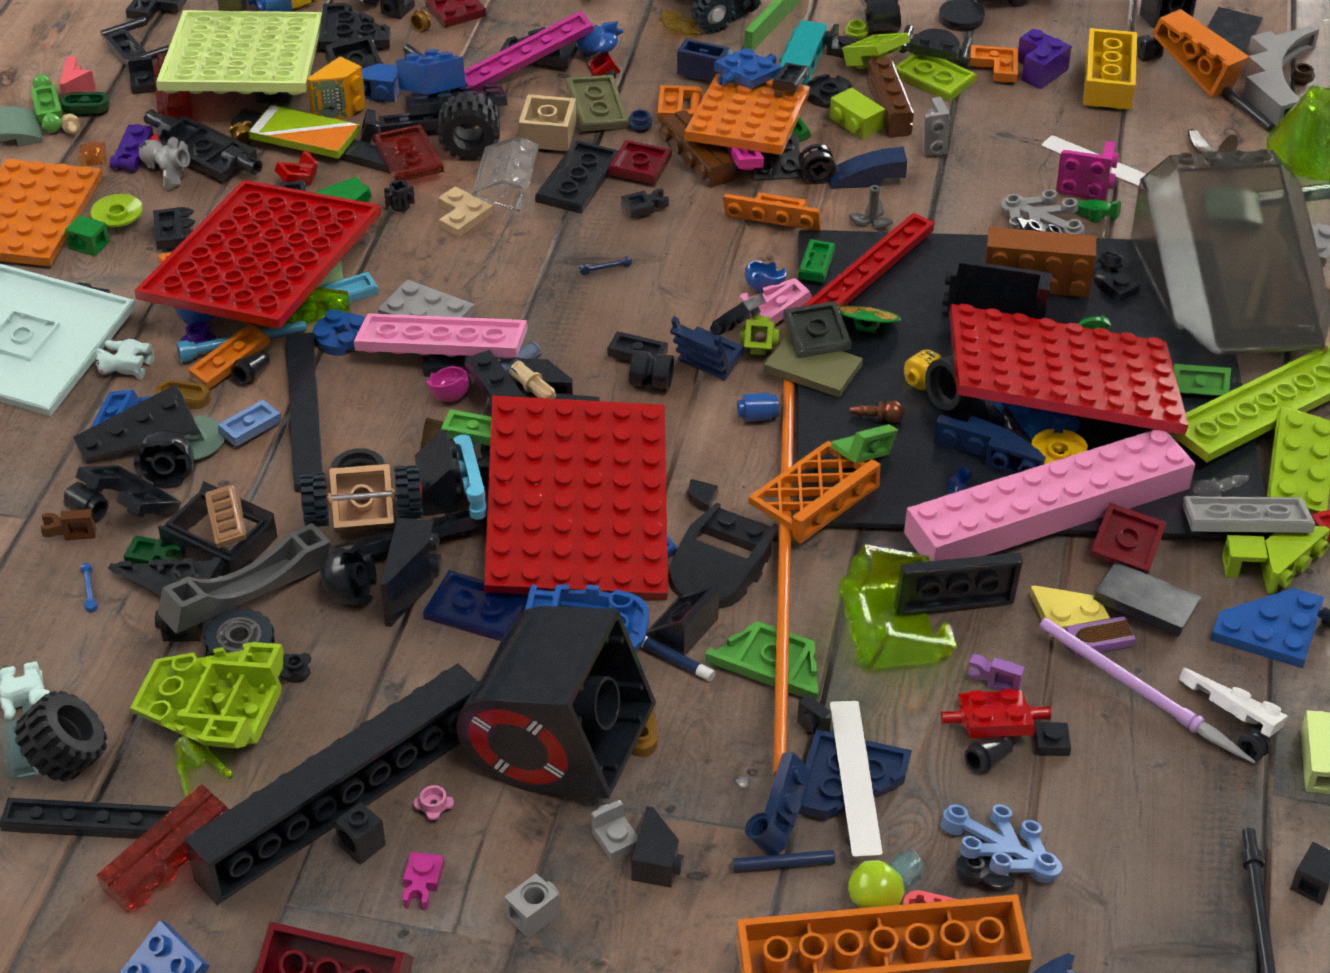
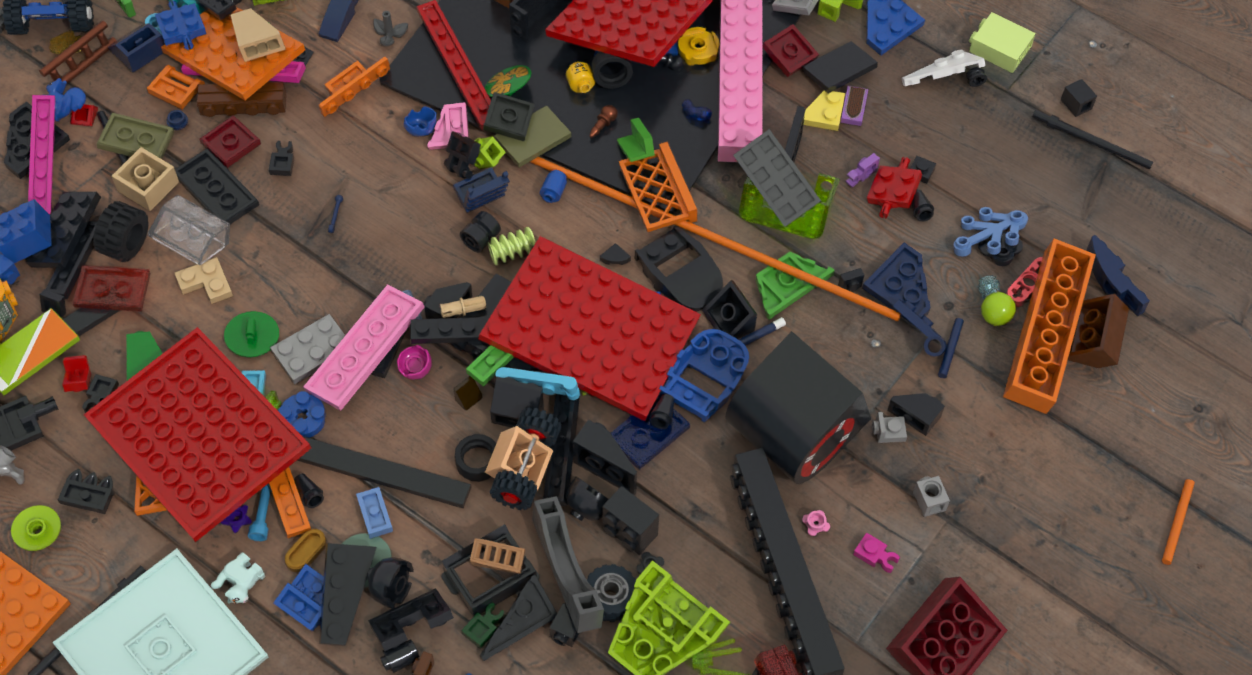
camera: 65 degrees left, 15 degrees up
(87, 235) = (54, 562): green brick -> none
(333, 617) = (630, 521): none -> black brick
(360, 833) = (829, 574): black brick -> none
(399, 195) = (162, 314): black gear -> none
(418, 264) = (251, 334): none -> green shield
(501, 599) = (662, 414): none -> black cone
(625, 344) = (446, 231): black plate -> none
(640, 390) = (511, 245): none -> yellowish green piece
(653, 20) = (81, 43): none -> copper bar
(759, 106) = (255, 35): none -> tan slope
(816, 261) = (427, 84): green plate -> none
(817, 165) = (317, 35): black wheel -> none
(855, 779) = (912, 280): white sticker -> none
(884, 564) = (777, 178): none -> dark grey plate
(983, 438) = (679, 72): dark blue slope -> none
(1182, 715) = (939, 97): lavender piece -> none

